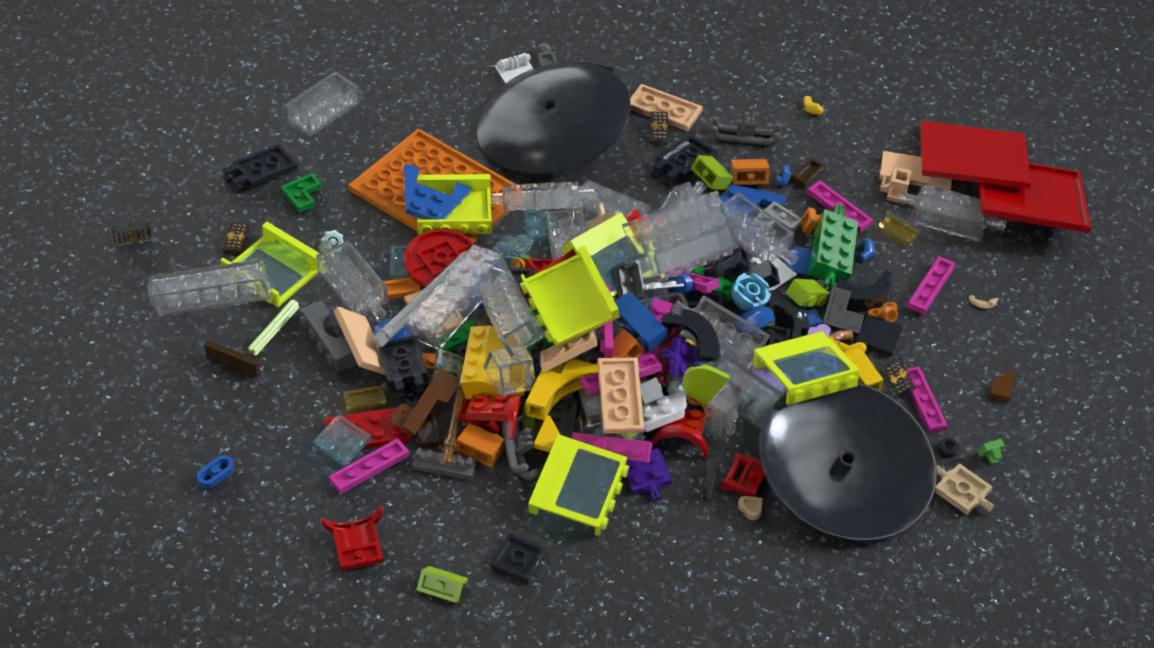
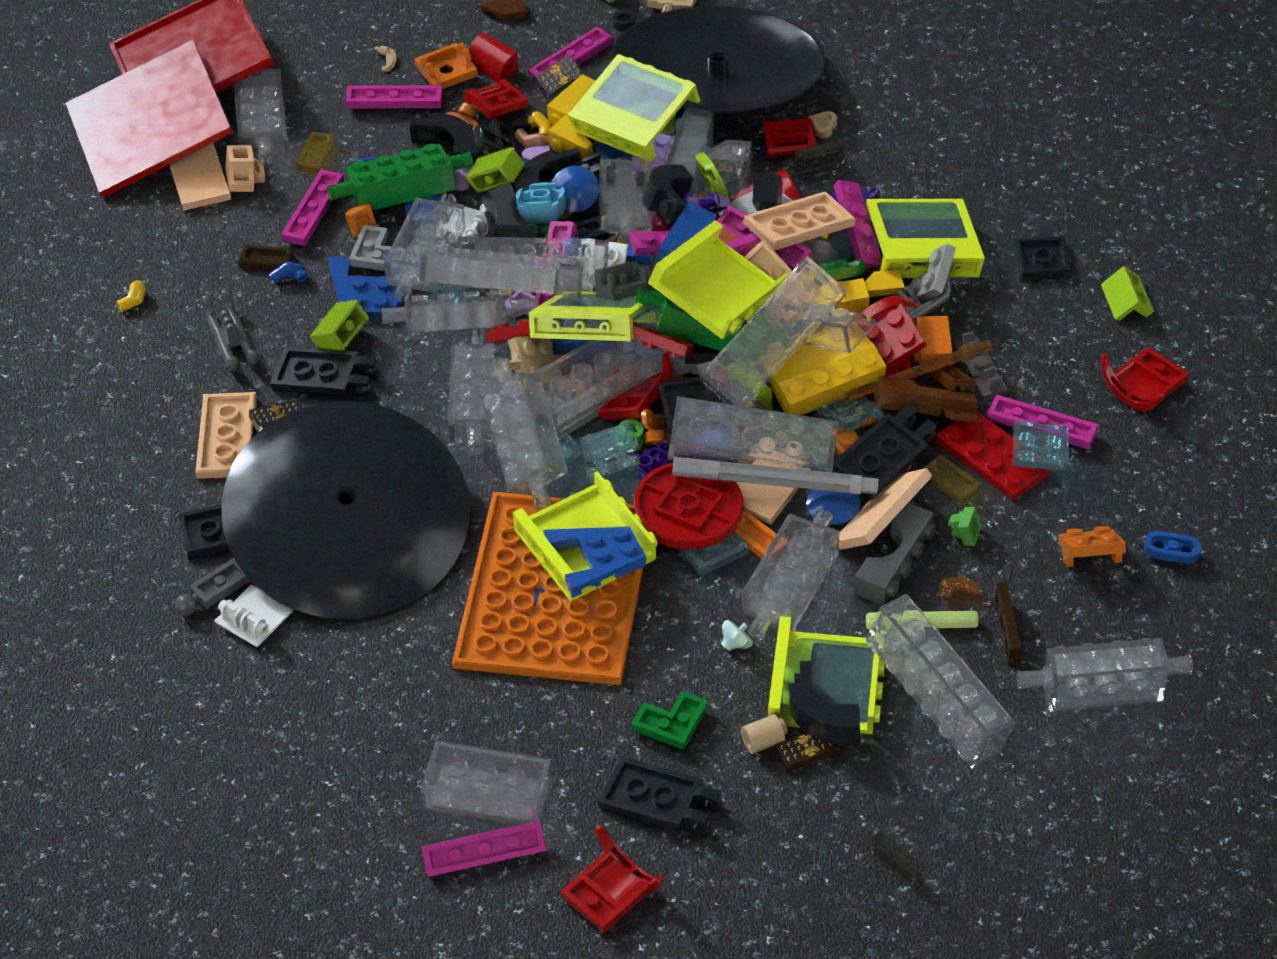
camera: 115 degrees left, 0 degrees up
(151, 372) = (1104, 674): none -> clear brick
(224, 127) = (609, 885): none -> red piece
(241, 434) = (1091, 543): none -> orange piece
(247, 239) = (821, 719): none -> black arch
(258, 217) = (763, 733): none -> tan brick
(283, 357) = (958, 583): none -> clear orange arm
(289, 91) = (483, 848): none -> dark pink plate
(317, 379) = (966, 526): none -> bright green tile
(426, 420) = (953, 379): none -> reddish brown tile
(523, 455) = (933, 282): none -> light grey plate
(568, 405) = (843, 268): none -> green plate
(666, 398) = (767, 191): none -> black brick
(750, 171) = (310, 295): orange brick -> none
(880, 327) = (496, 99): none -> red plate
(944, 352) = (493, 57): none -> red brick
(949, 313) = (451, 56): none -> orange piece

